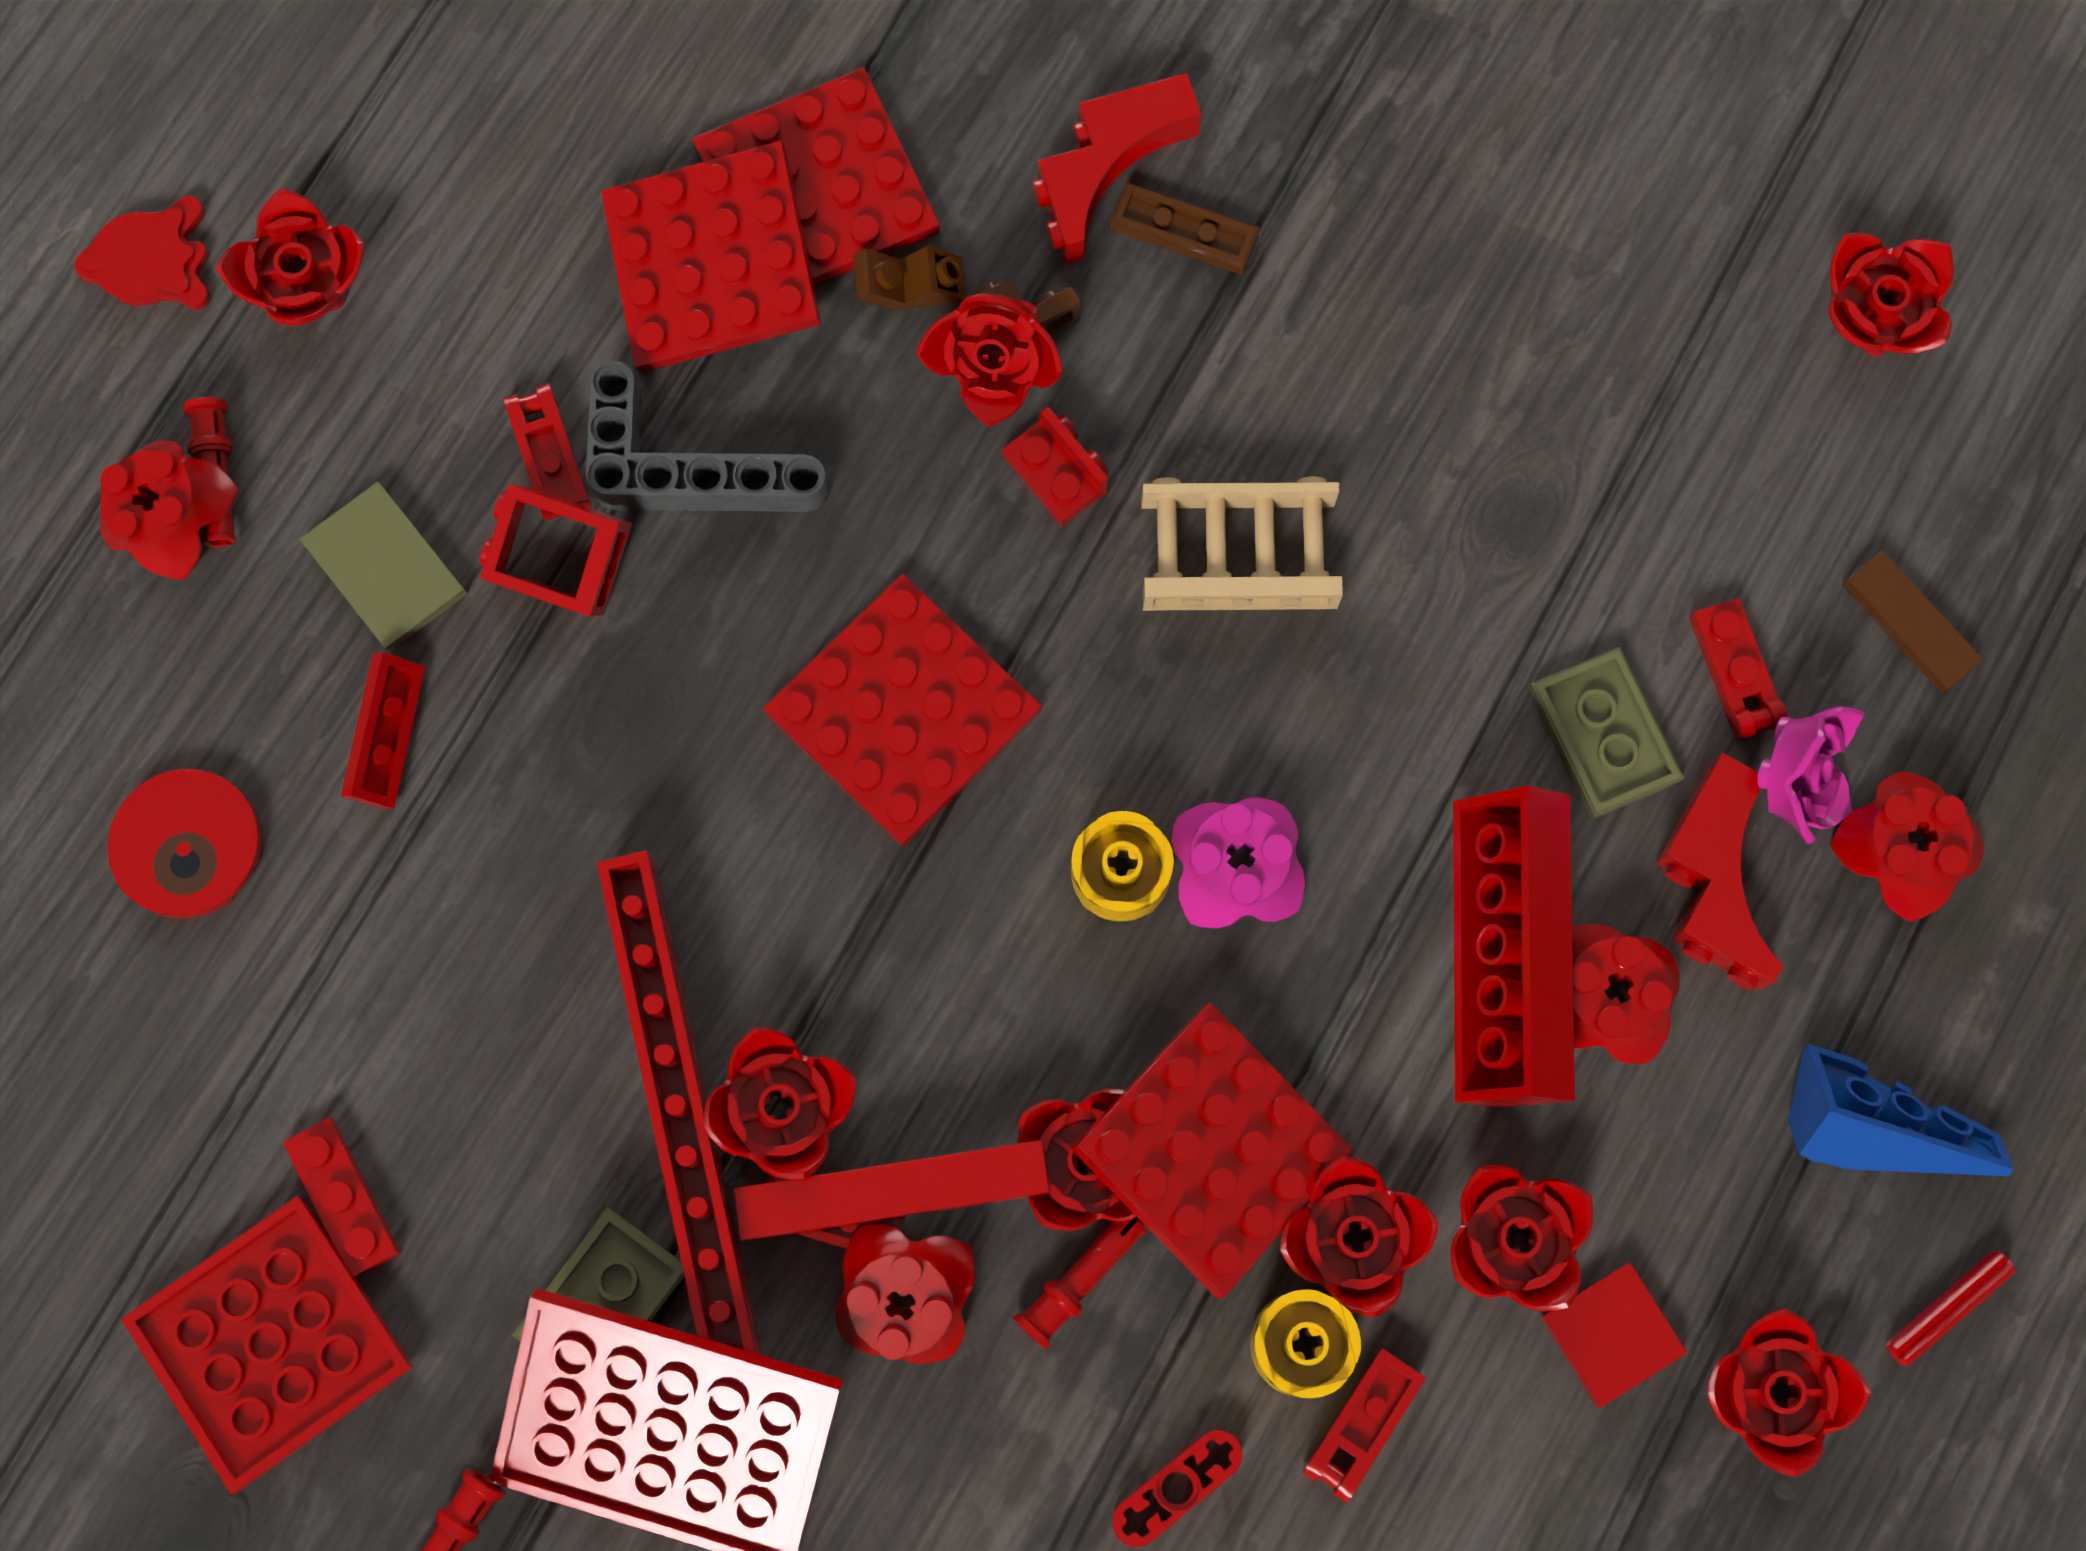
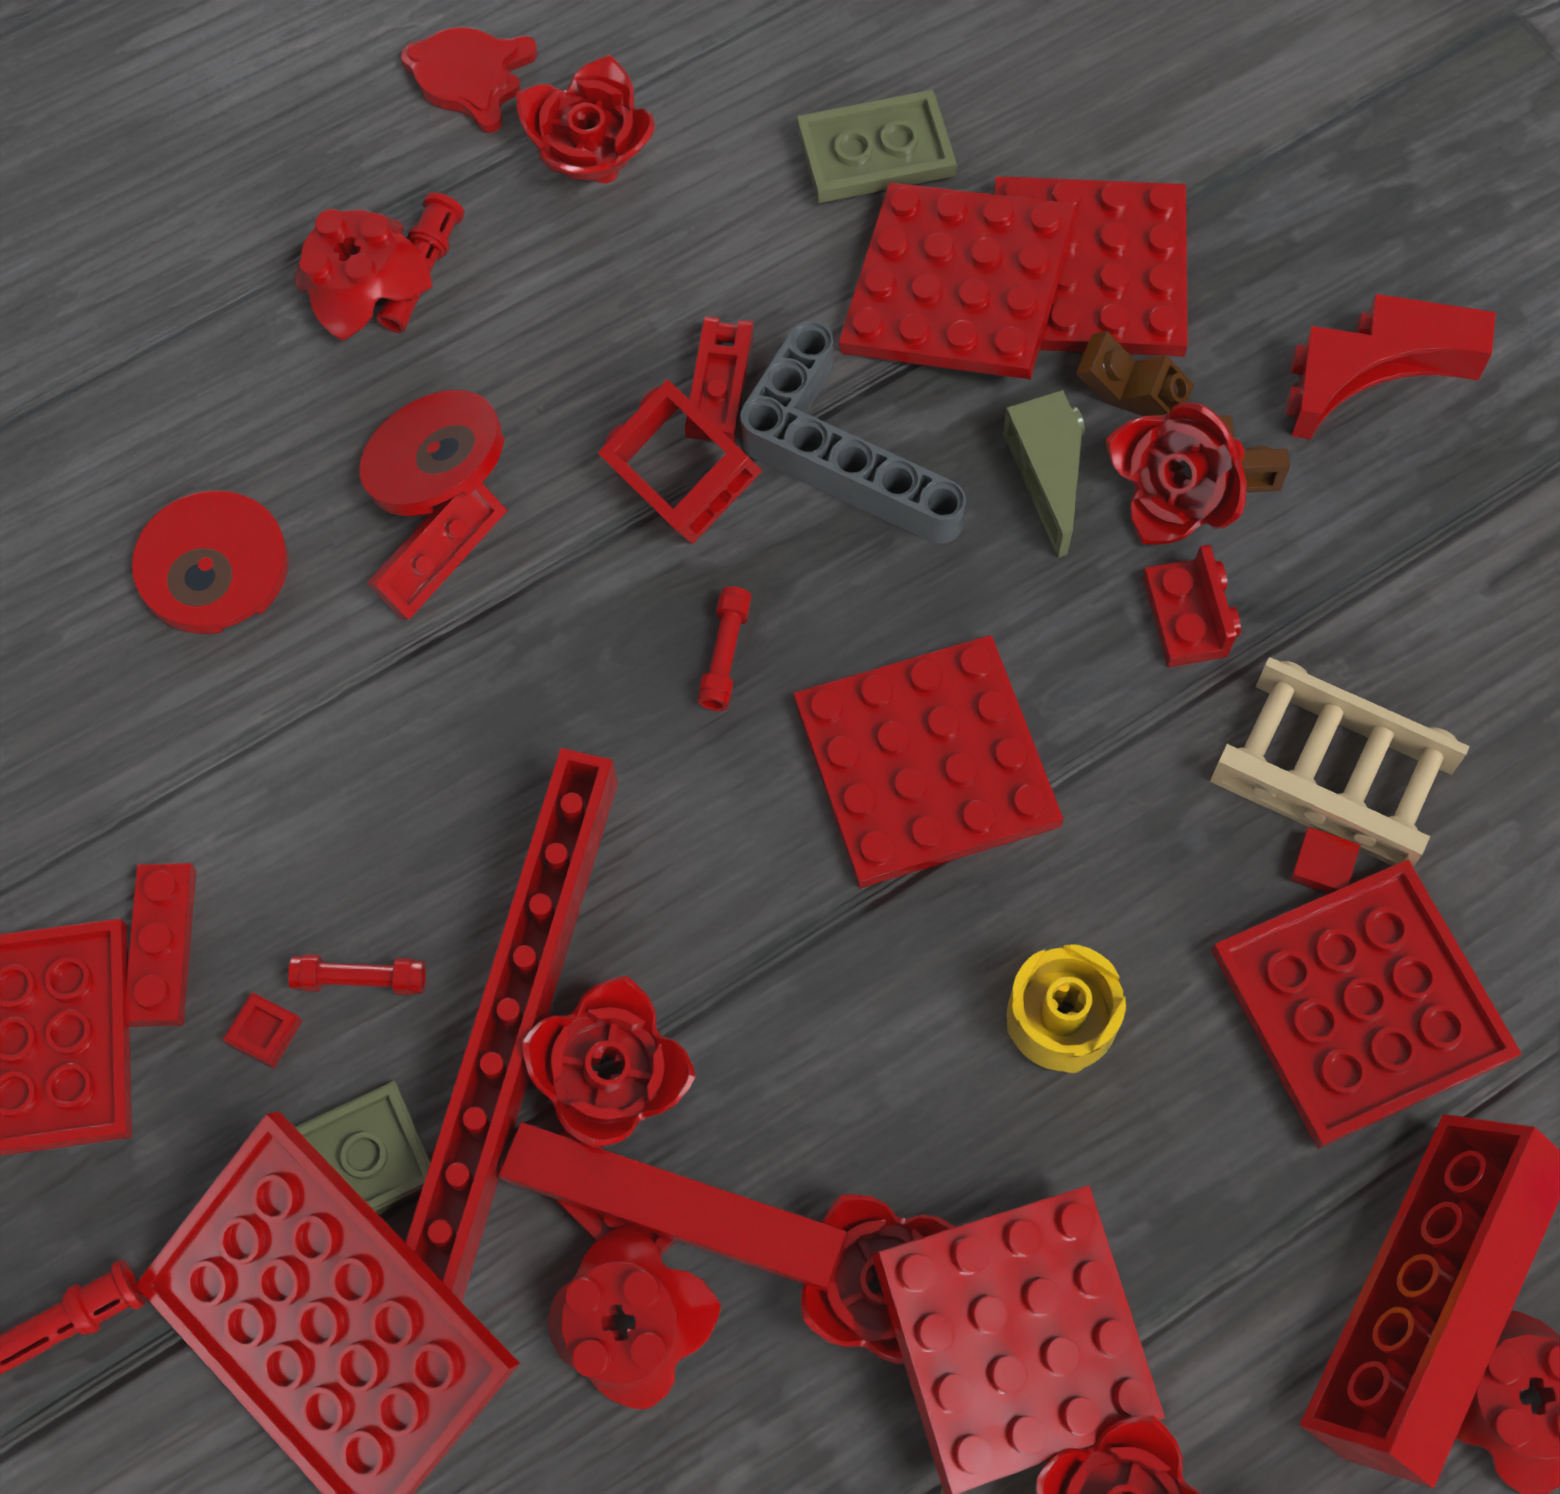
camera: 30 degrees right, 10 degrees down
(330, 648) = (431, 452): none -> red tile
(383, 566) = (531, 400): olive tile -> none
(472, 1223) = (262, 1030): none -> red tile
(486, 1155) = (310, 973): none -> red bar
(569, 158) = (876, 143): none -> olive plate
(694, 735) = (732, 611): none -> red bar
(867, 381) = (1046, 449): none -> olive slope
(1063, 1297) = (787, 1408): red pin -> none
(1184, 228) = (1425, 454): reddish brown tile -> none
(1219, 894) = (1153, 1087): dark pink brick -> none
(1267, 635) = (1324, 861): none -> red tile
(1351, 738) = (1364, 1003): none -> red plate

